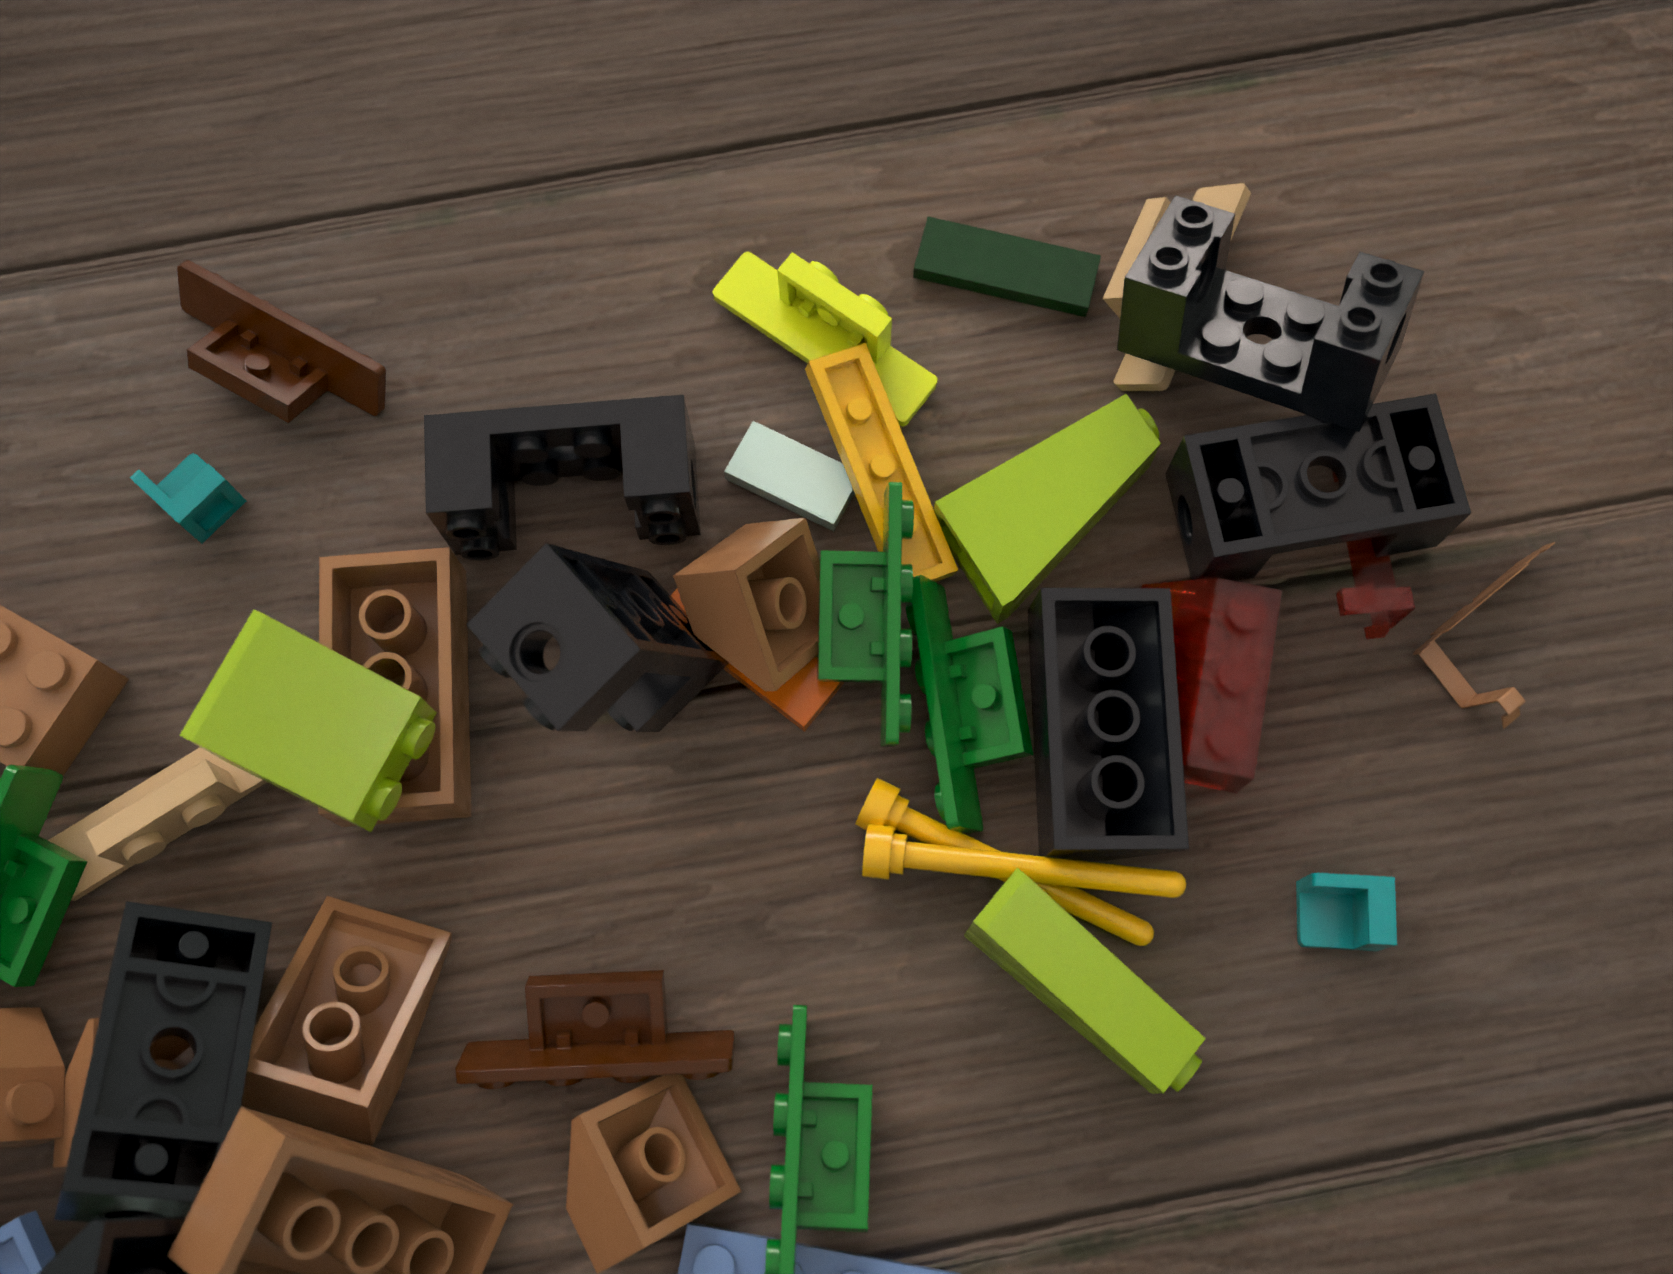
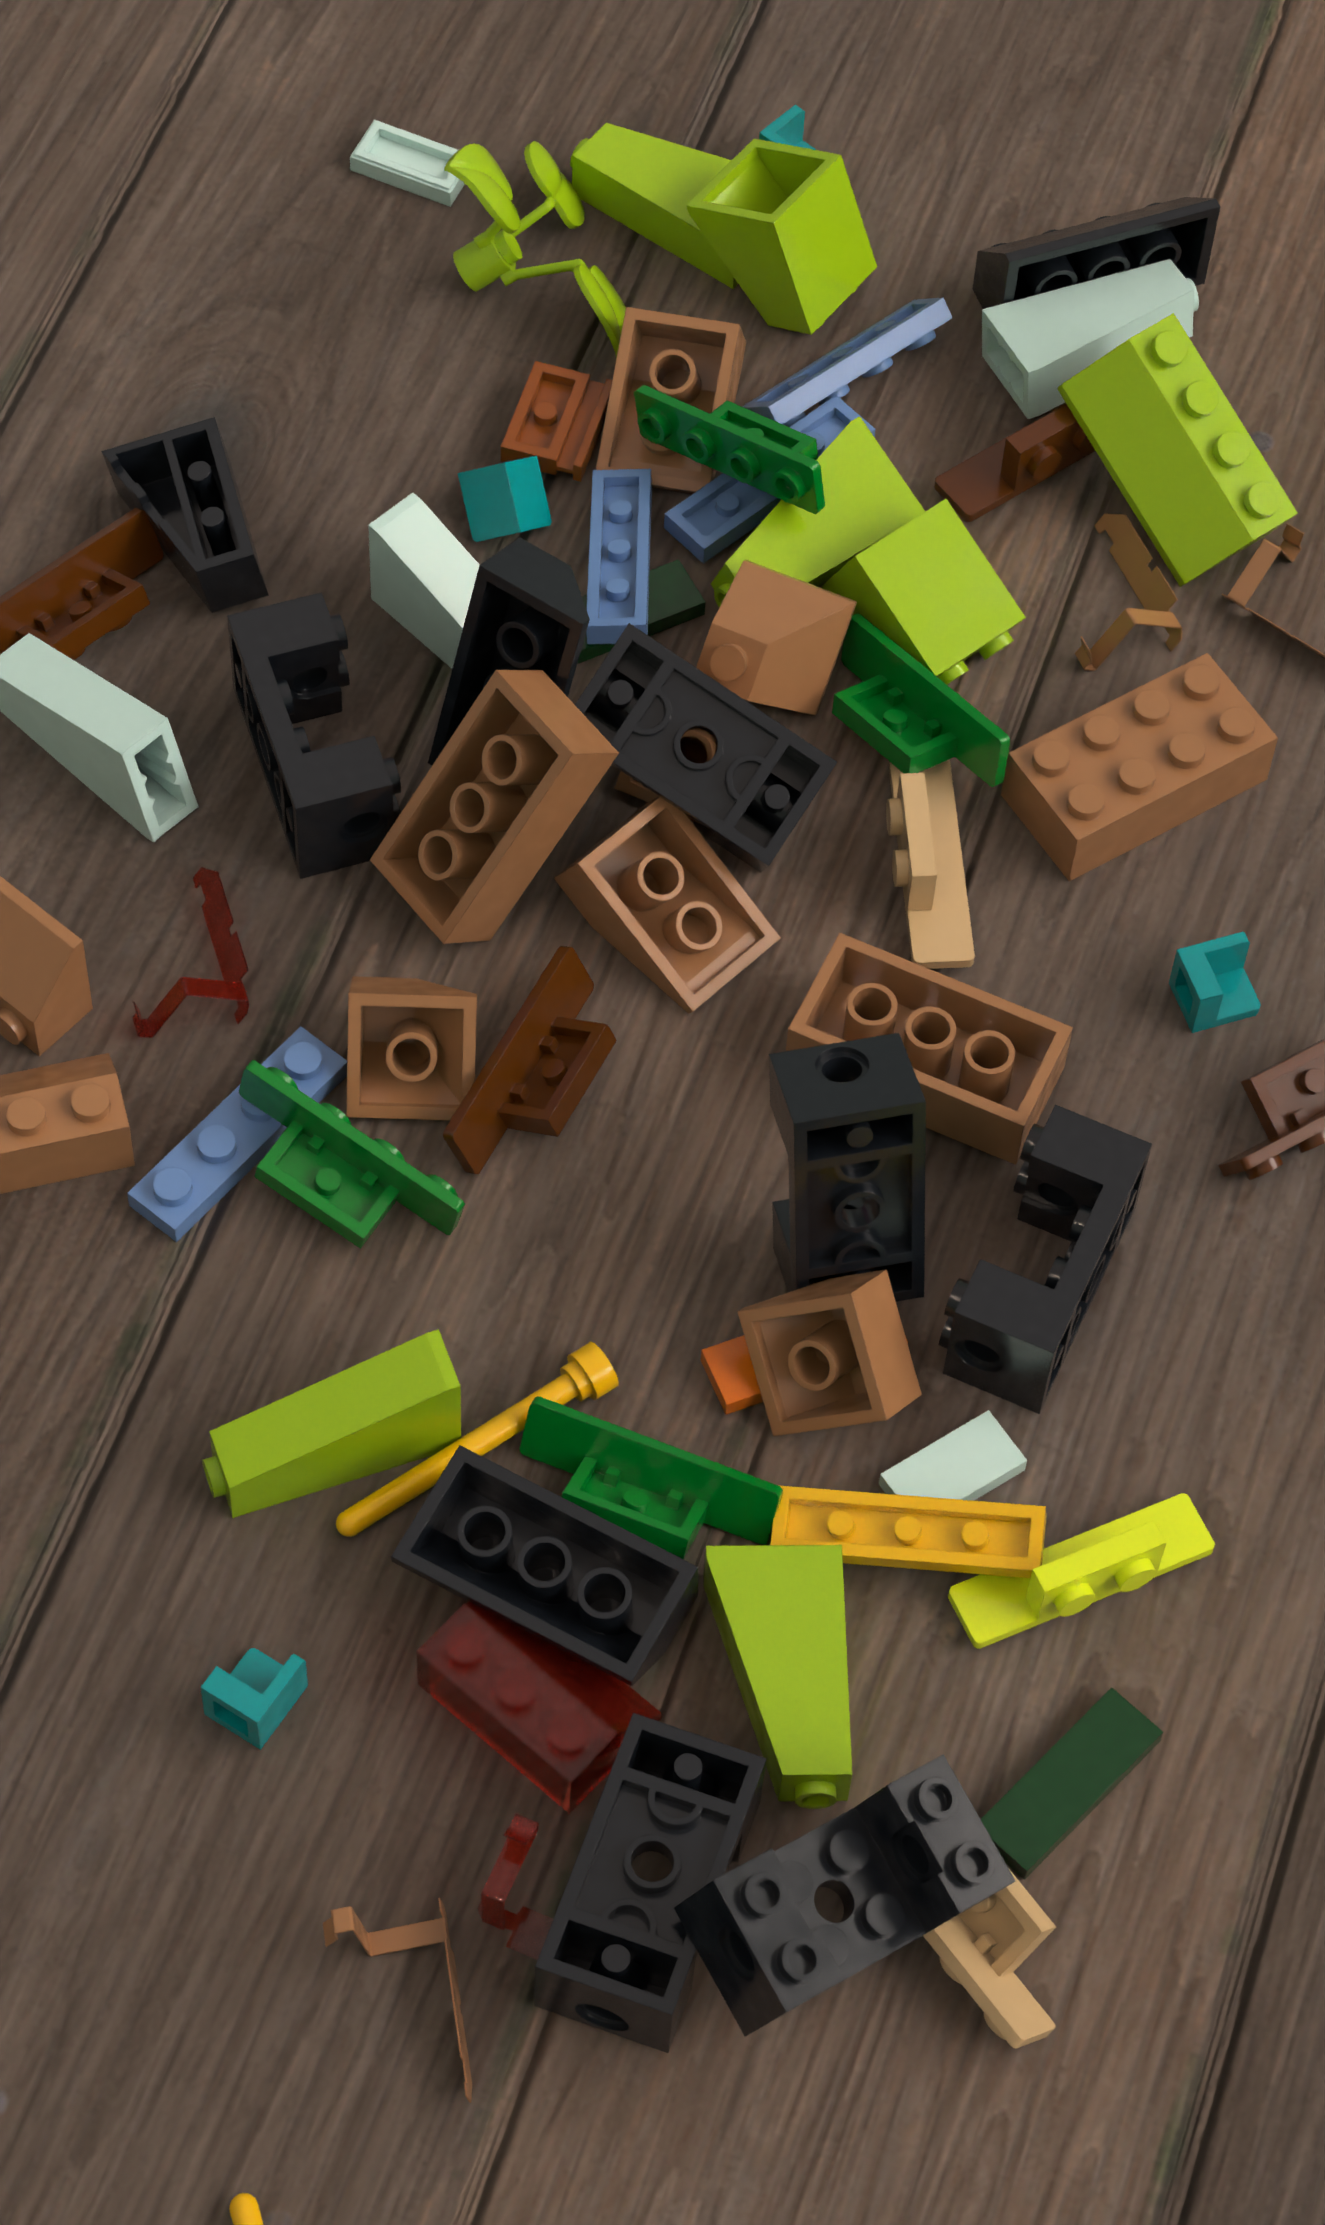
camera: 115 degrees right, 15 degrees down
(311, 722) = (907, 937): lime slope -> none
(862, 616) = (766, 1427): green bracket -> none
(891, 853) = (545, 1349): yellow piece -> none

